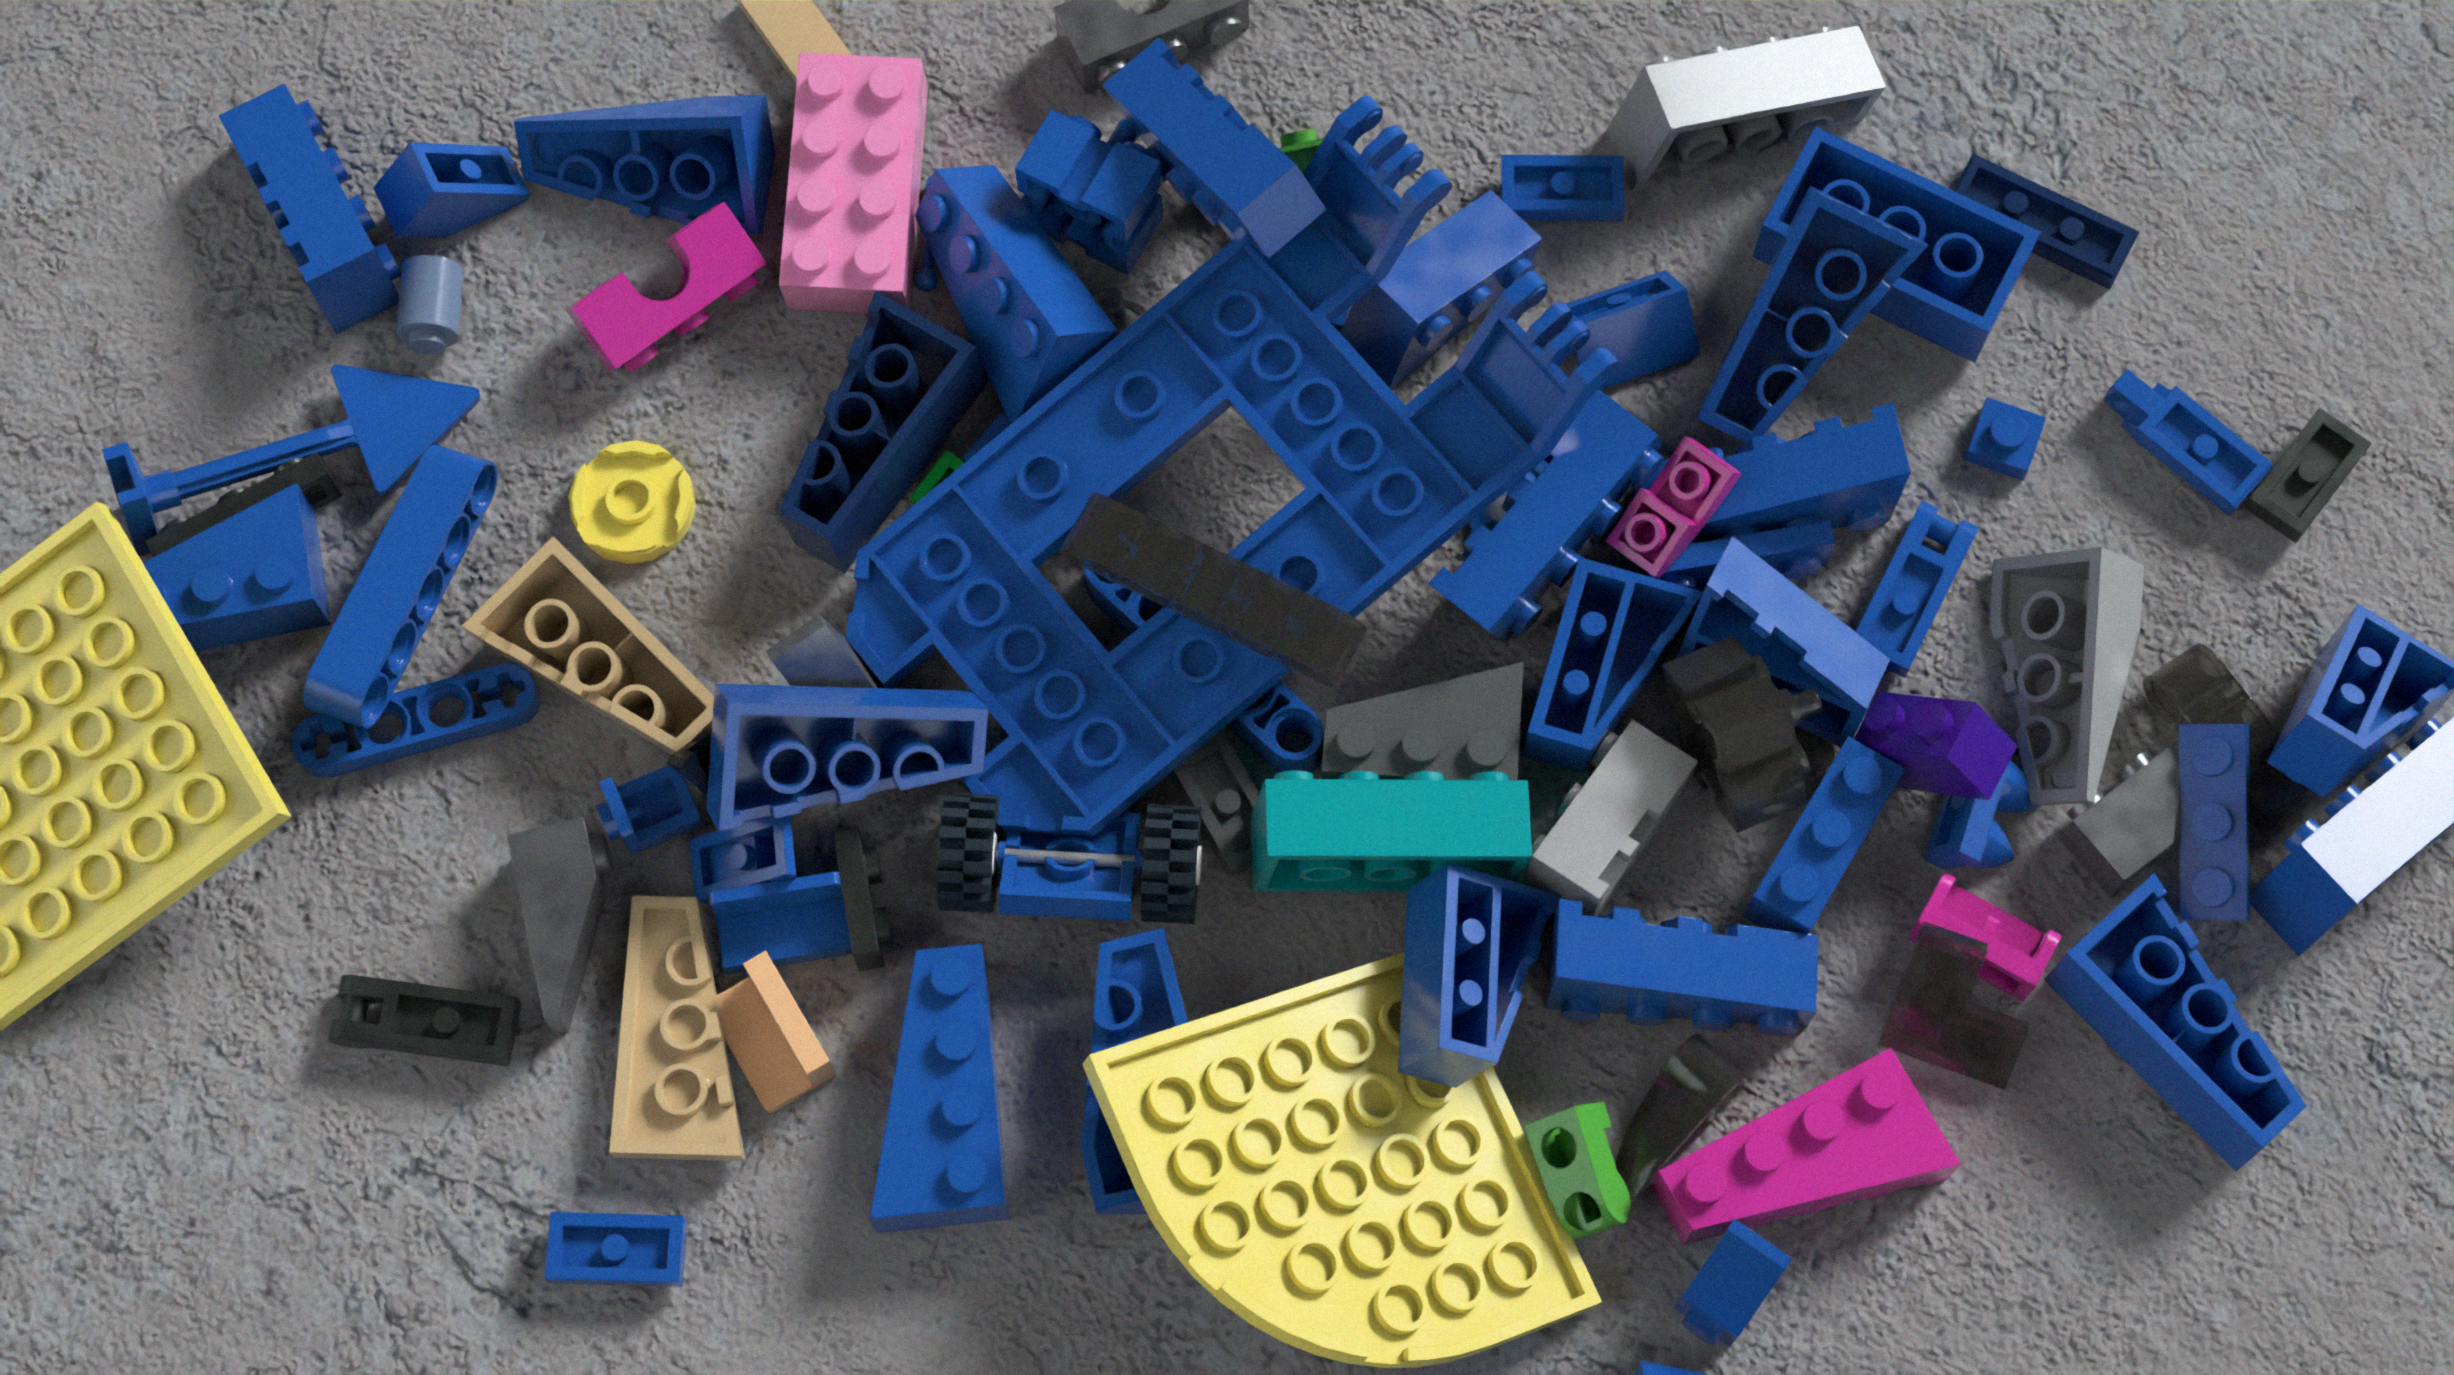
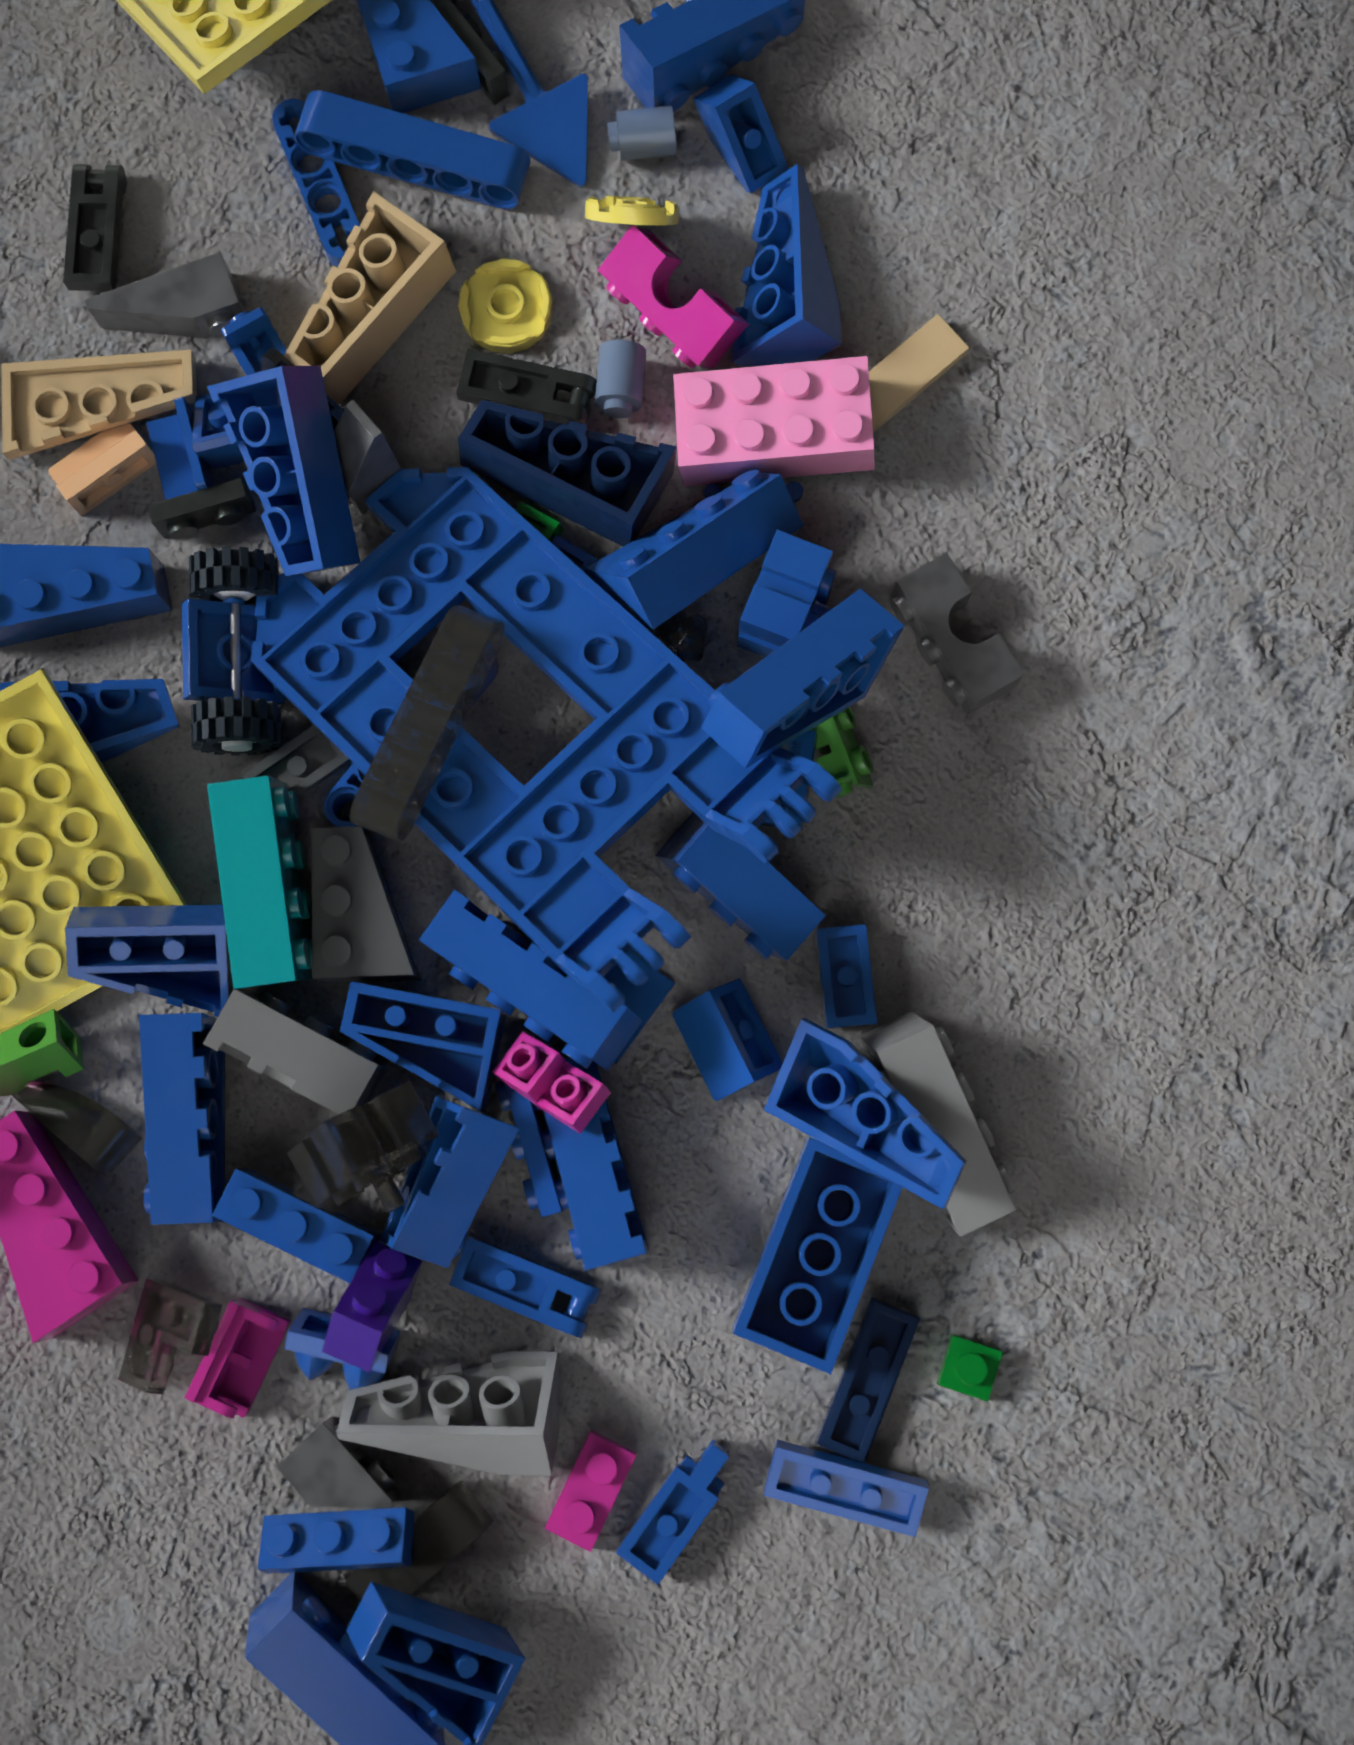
camera: 85 degrees right, 10 degrees up
(543, 325) = (631, 211): none -> light yellow tile
(753, 484) = (525, 386): none -> pearl dark grey plate
(761, 365) = (620, 378): none -> sand blue brick
(1728, 171) = (853, 1108): none -> blue wedge
(1811, 298) = (741, 1182): blue wedge -> none
(2004, 438) = (666, 1357): blue plate -> none
(2031, 111) = (969, 1367): none -> green plate
(2160, 538) = (590, 1490): none -> dark pink plate
(2166, 252) = (846, 1488): none -> blue plate
(2177, 1024) = (184, 1500): blue wedge -> none
(2307, 475) = (655, 1616): pearl dark grey plate -> none

